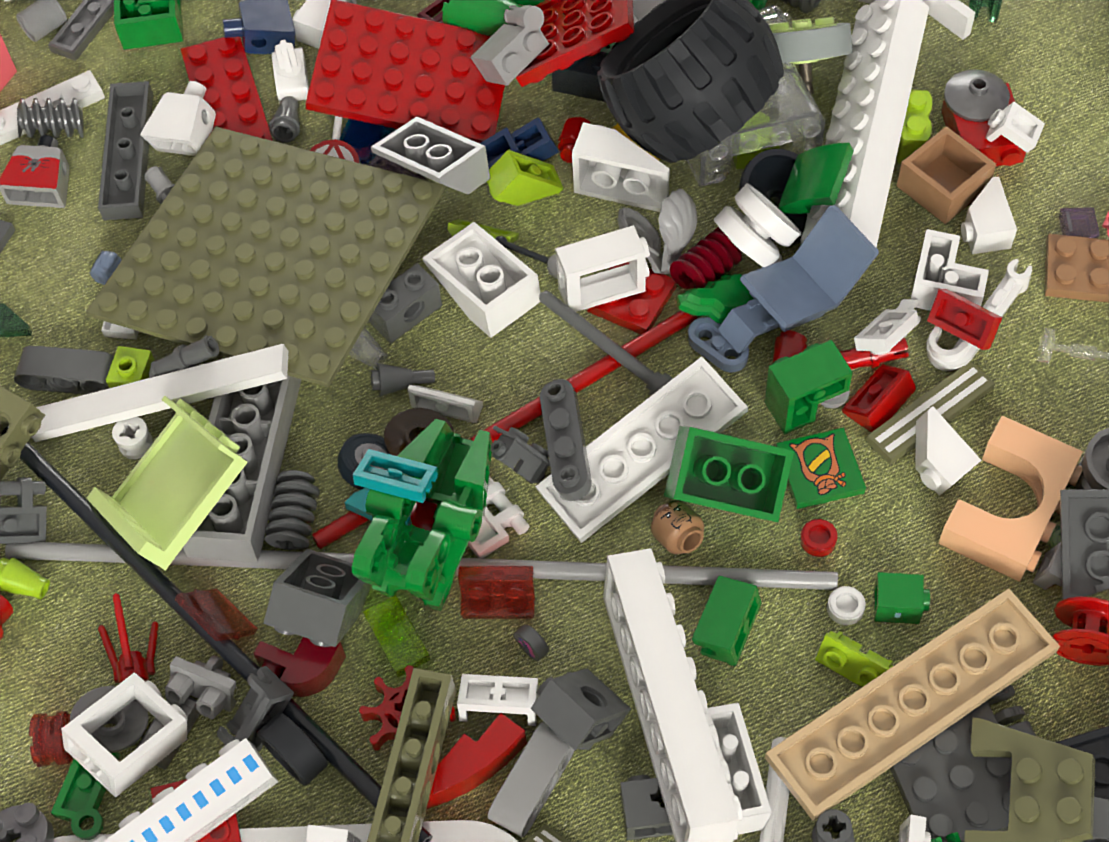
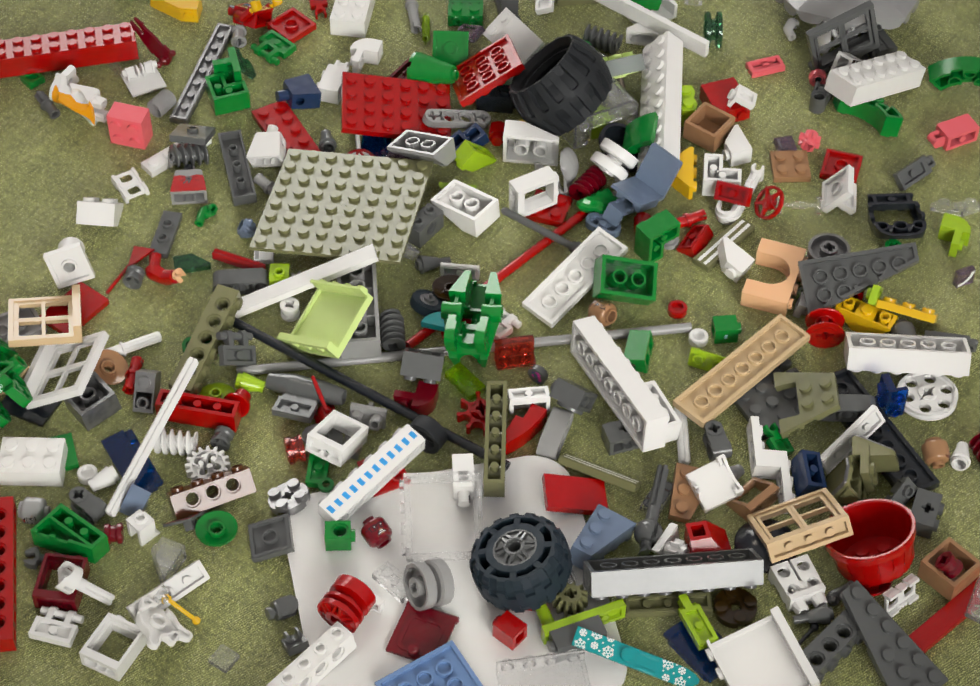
camera: 15 degrees left, 10 degrees down
(49, 228) = (204, 213): none -> green arm
(63, 82) = (192, 134): none -> dark grey plate
(76, 327) = (236, 260): none -> red axle
(88, 637) = (300, 397): none -> dark grey plate
(186, 356) = (315, 260): dark grey pin -> none
(216, 614) = (365, 382): clear red piece -> none
(263, 701) = (405, 414): dark grey hinge -> none
(290, 72) = (322, 116): white beam -> none
(393, 481) = (454, 294): teal tile -> none
(508, 100) = (435, 118): none -> light grey beam
(512, 45) = (453, 85): light grey hinge -> none
(512, 447) = (512, 287): dark grey hinge -> none
(551, 261) = (503, 196): black hinge -> none
(565, 440) = (533, 277): dark grey plate -> none
(822, 469) = (674, 277): green tile -> none
(882, 274) = (684, 180): none -> yellow slope
(888, 328) = (693, 204): white plate -> none
(976, 95) = (717, 84): flat silver dish -> none
(1029, 341) = (769, 202): none -> red wheel
(1071, 69) = (765, 66): none -> coral tile

